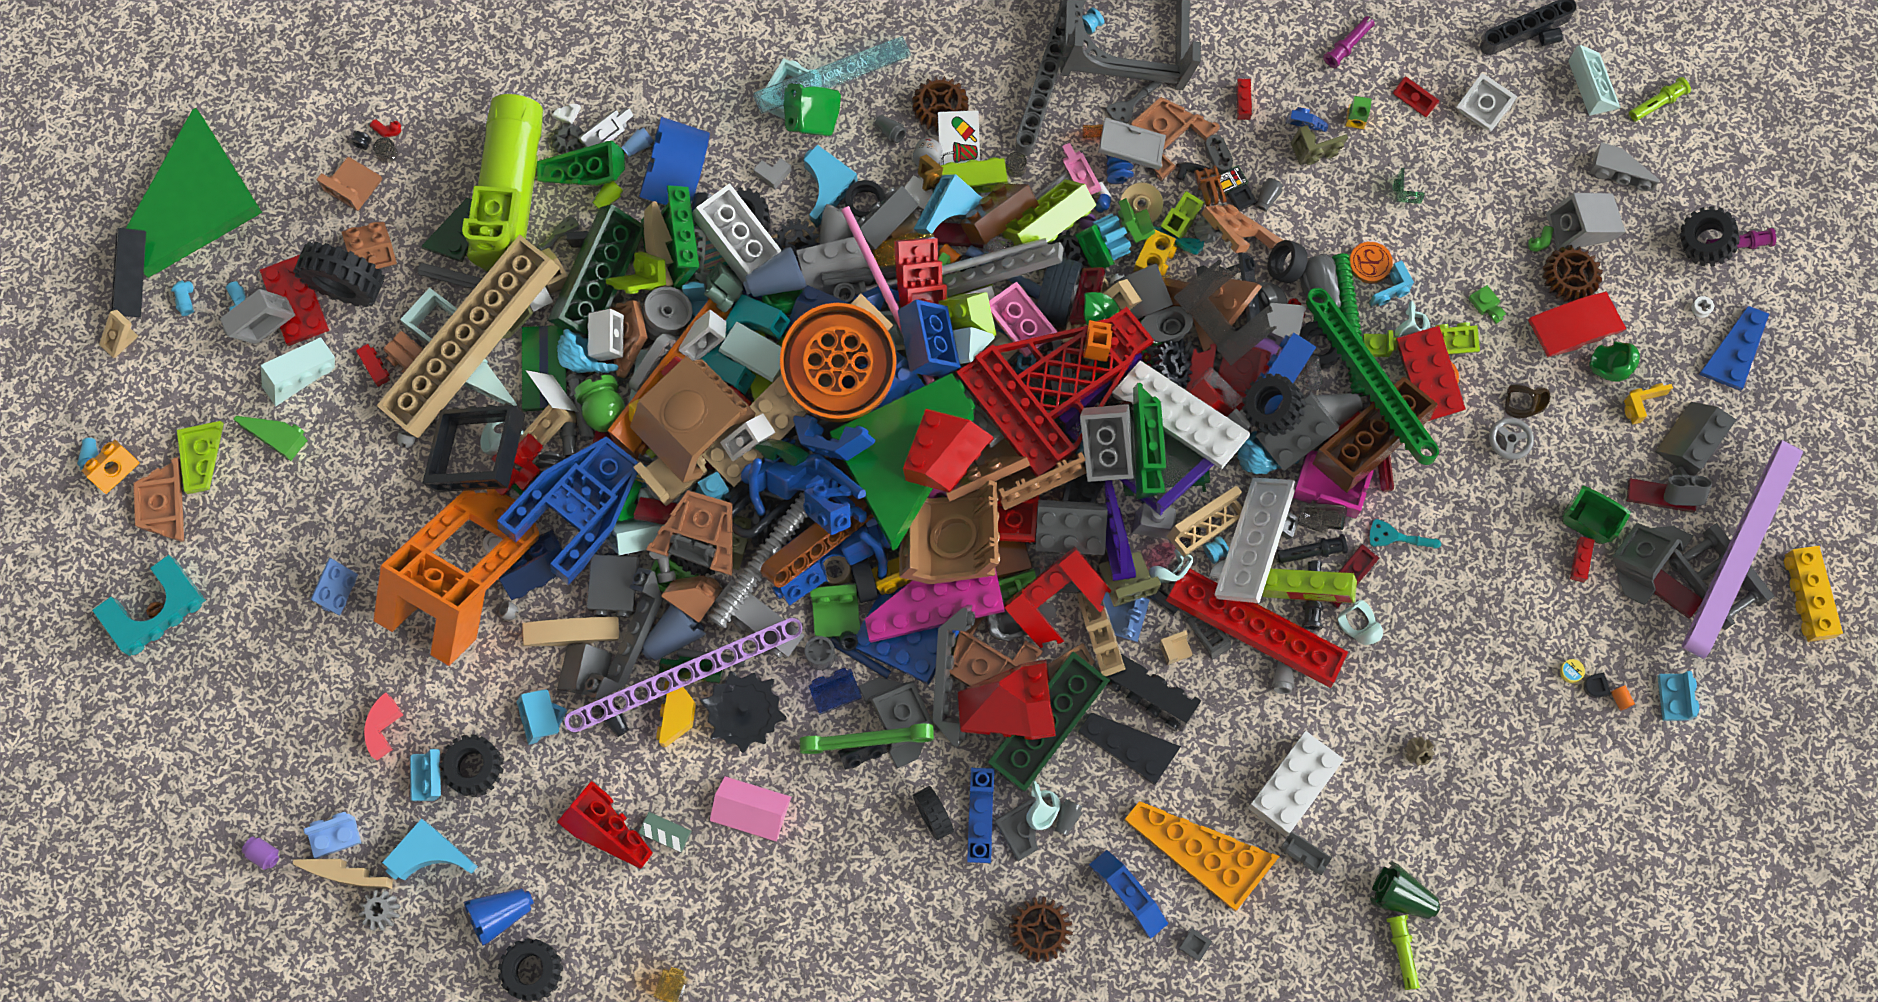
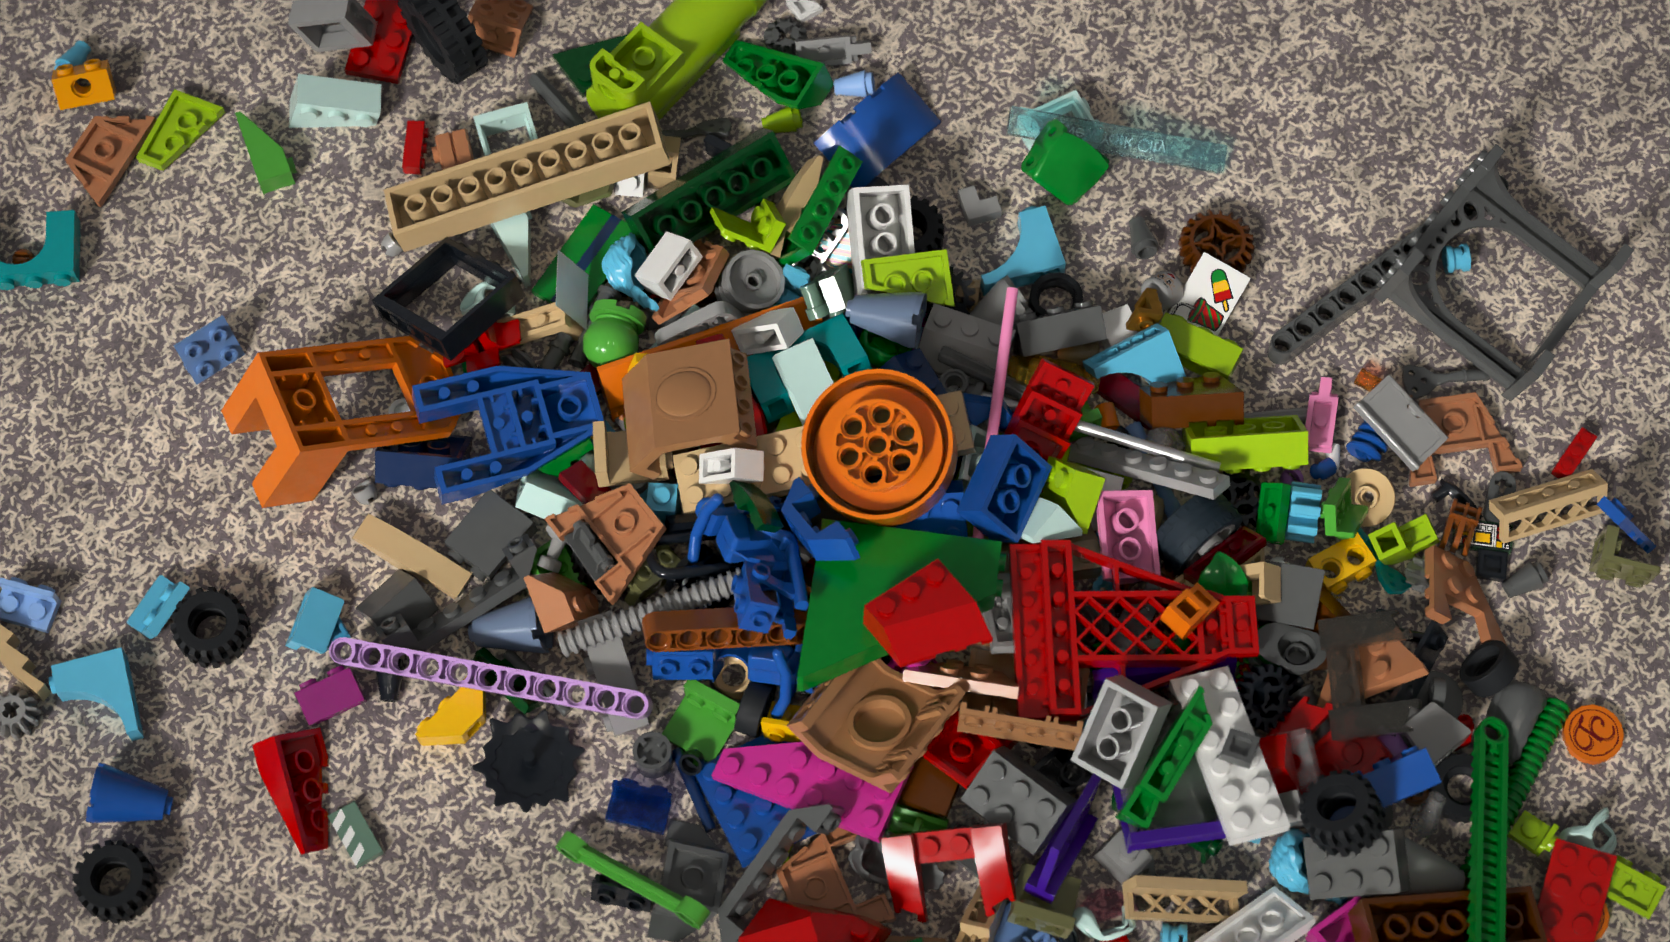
camera: 35 degrees right, 5 degrees down
(380, 716) = (158, 515): coral brick -> none
(584, 756) = (330, 696): none -> magenta brick
(749, 808) = (460, 870): bright pink slope -> none
(770, 240) = (912, 272): none -> lime wing
(1019, 161) = (1256, 358): clear smoke wheel -> none
(1188, 405) = (1239, 748): none -> dark grey plate
(1251, 134) = (1549, 498): none -> tan fence
(1399, 276) = (1613, 784): medium azure bracket -> none

